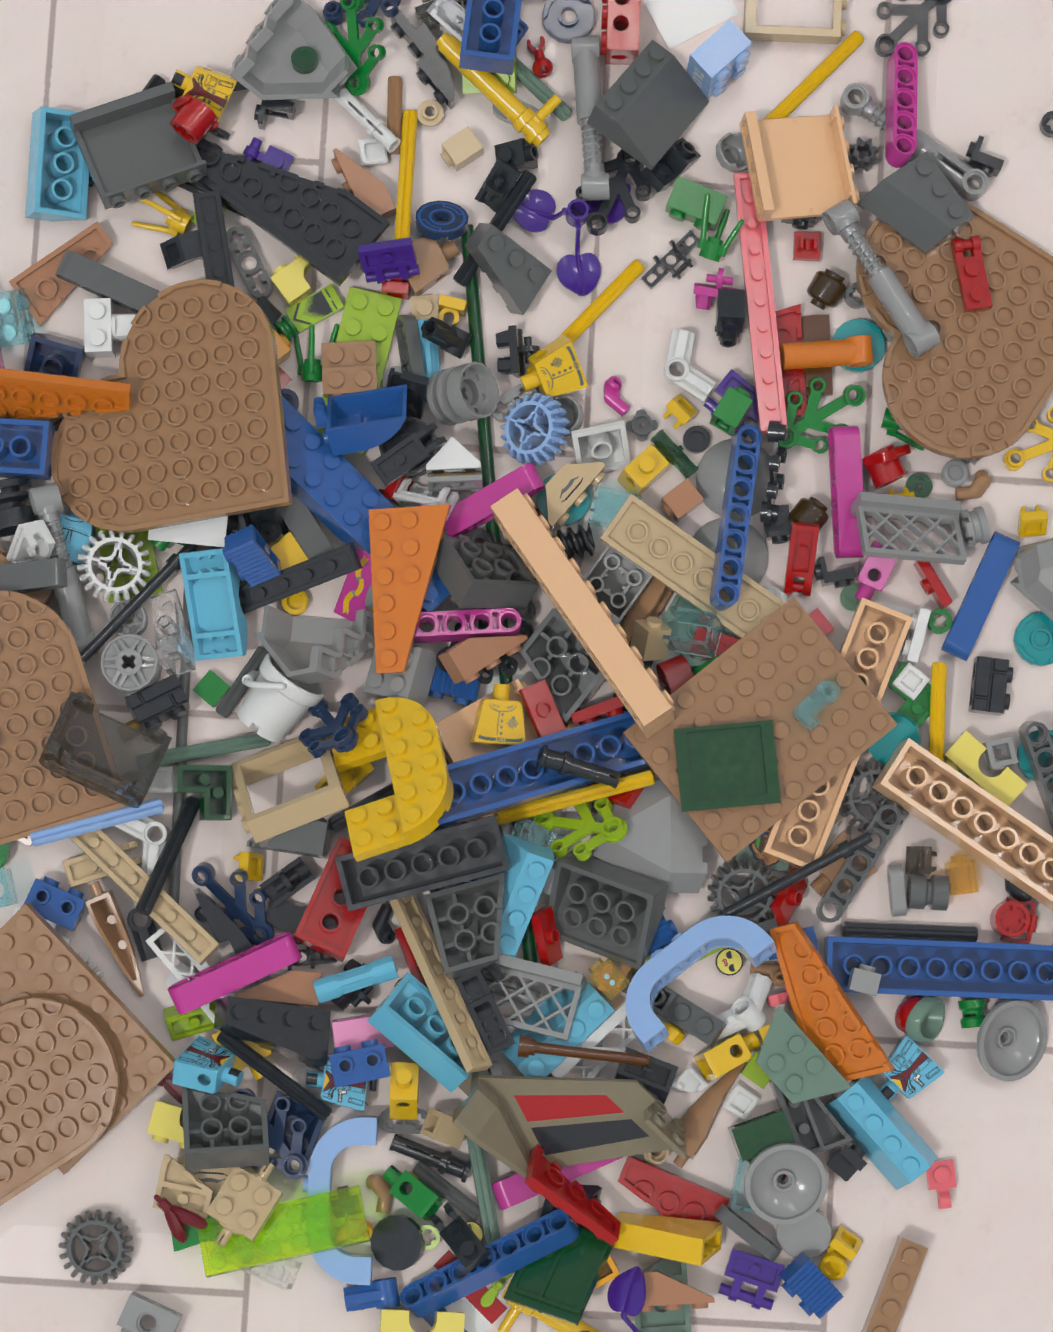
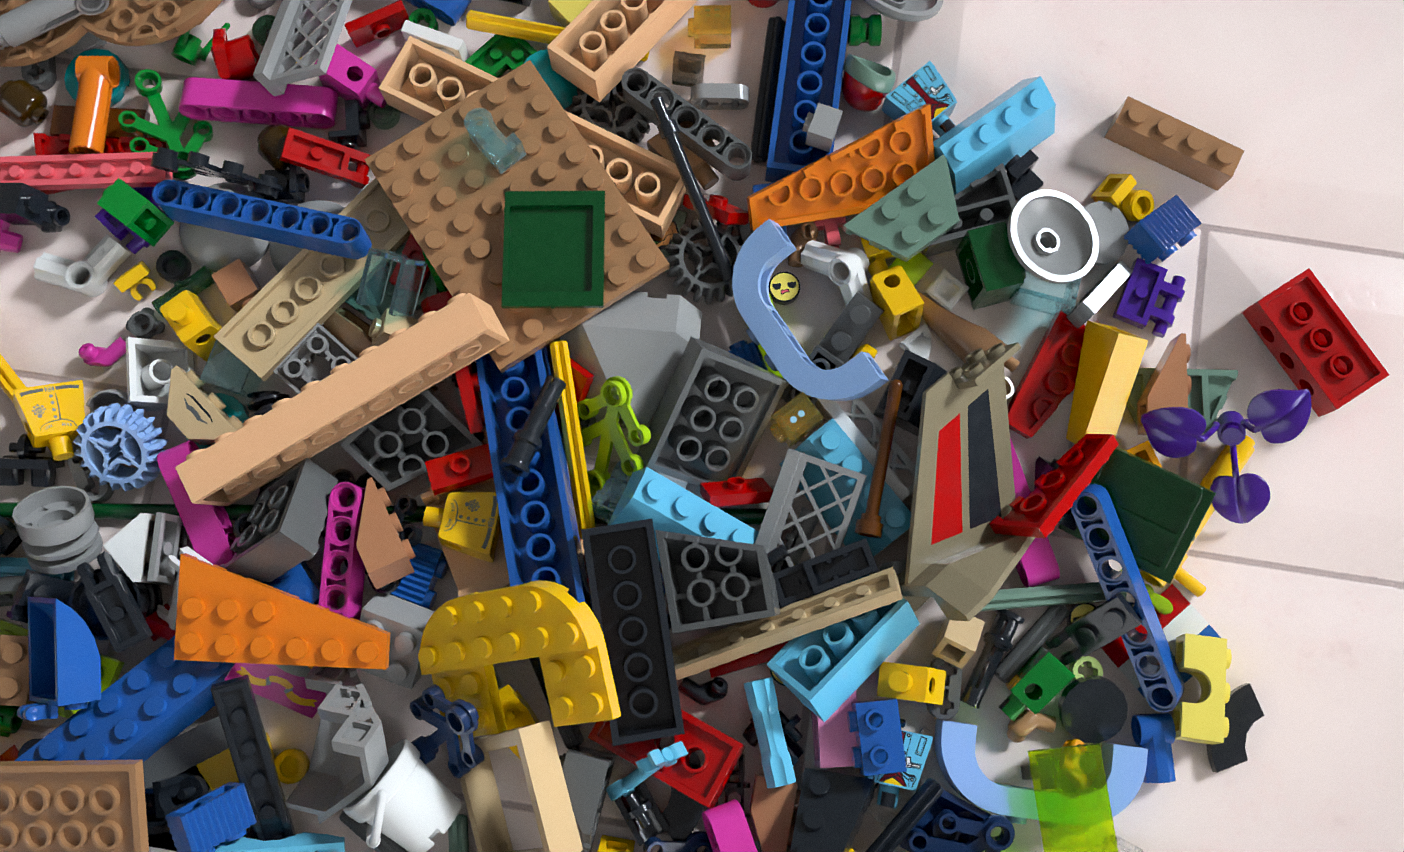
camera: 80 degrees left, 5 degrees down
(319, 884) = (646, 767): none -> medium azure bar
(911, 681) = (485, 54): white tile -> none
(928, 892) = (725, 58): dark grey wheel -> none
(941, 1178) = (1055, 83): coral plate -> none

